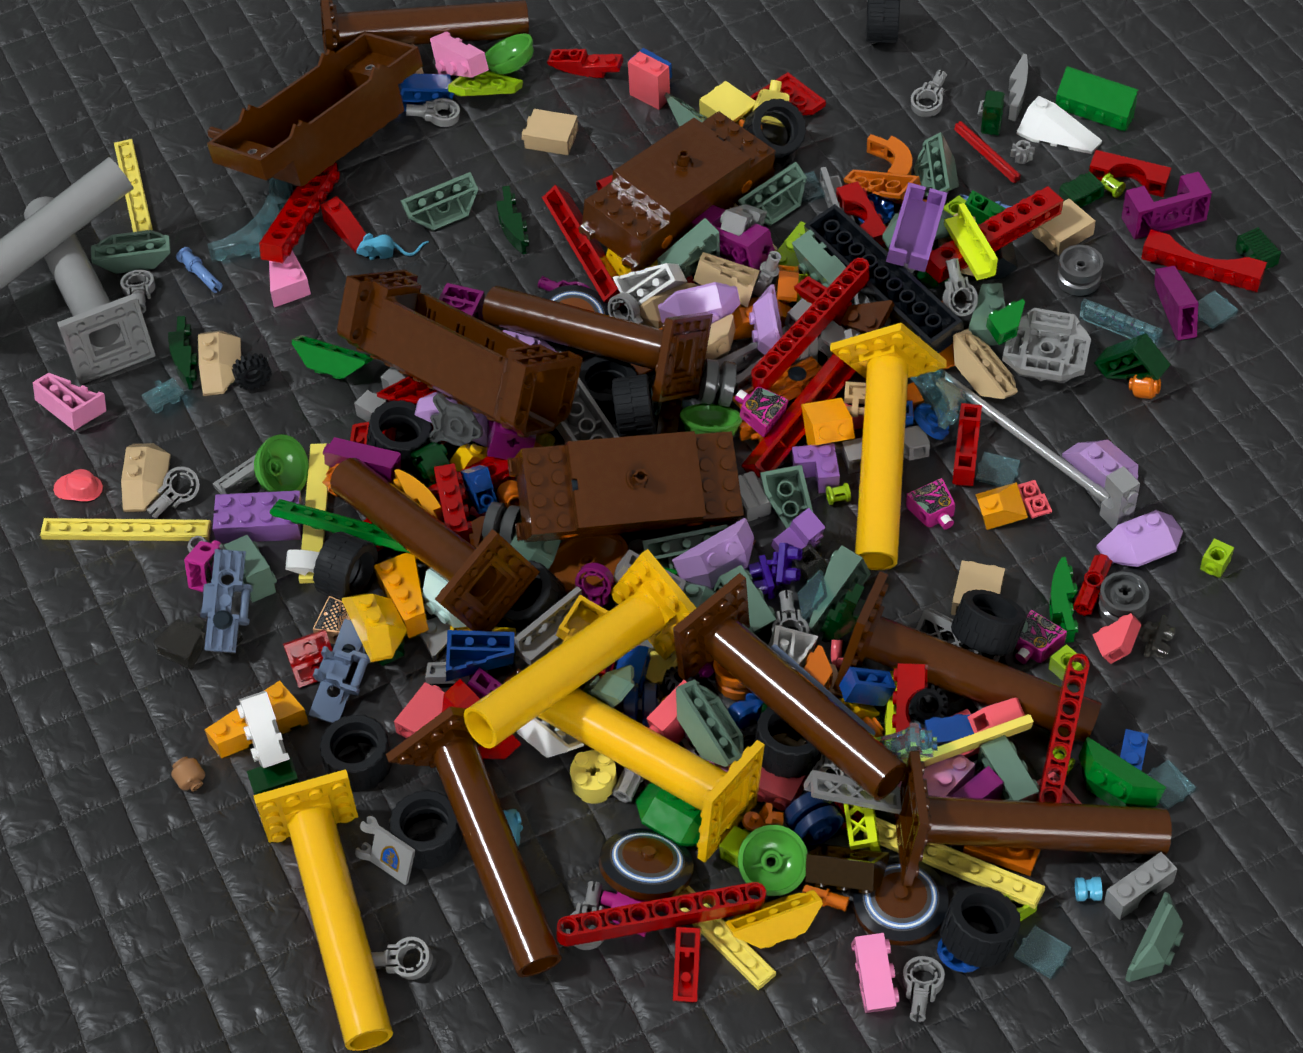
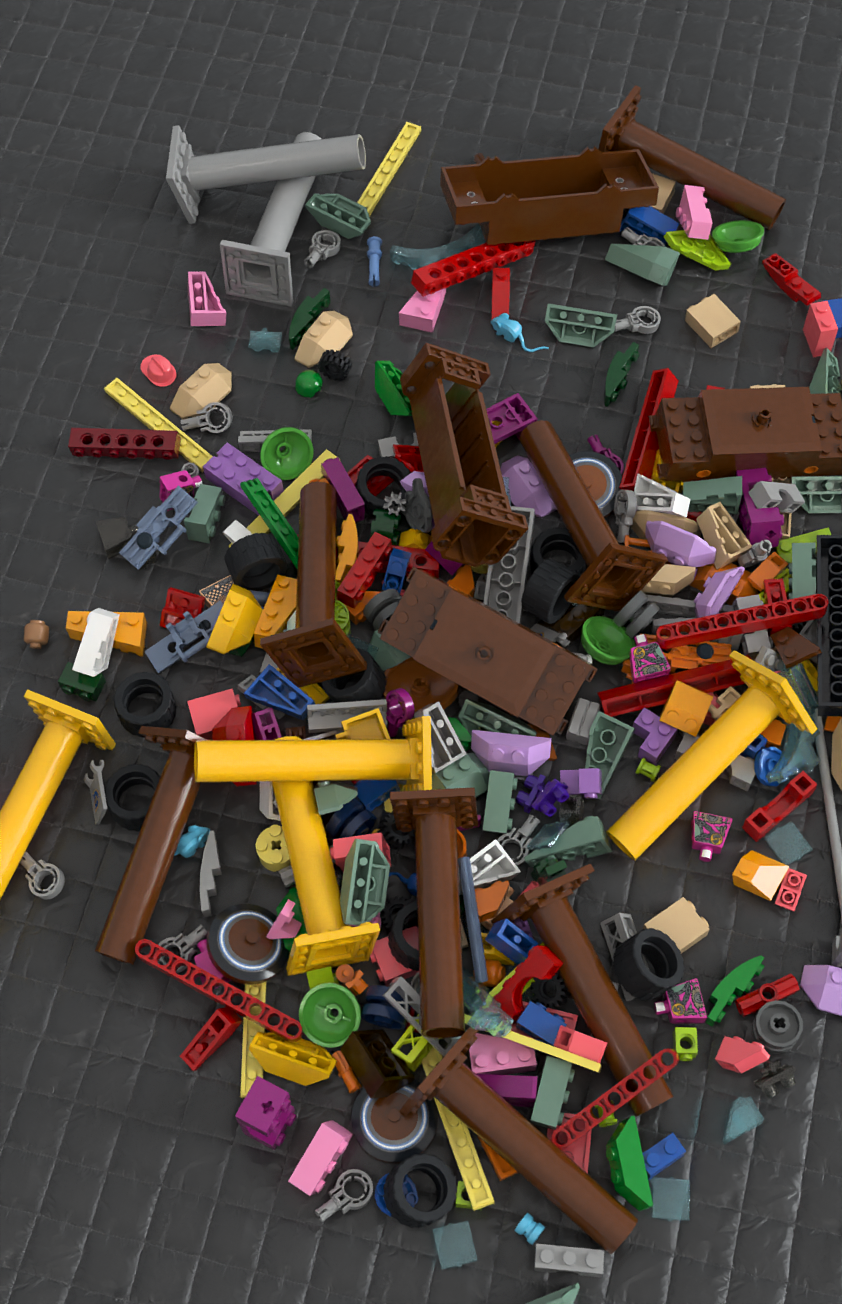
camera: 40 degrees right, 10 degrees up
(100, 562) = (117, 437): none -> dark red brick
(238, 404) = (308, 383): none -> green hair
(434, 433) = (397, 498): none -> light grey gear
(451, 119) = (649, 262): none -> sand green wedge
(484, 174) = (634, 323): none -> light grey pin
(550, 837) = (209, 868): none -> light grey slope
(664, 819) = (284, 924): none -> bright pink slope
(799, 964) = (266, 1113): none -> magenta plate
(1162, 684) = (741, 1119): none -> clear light blue slope

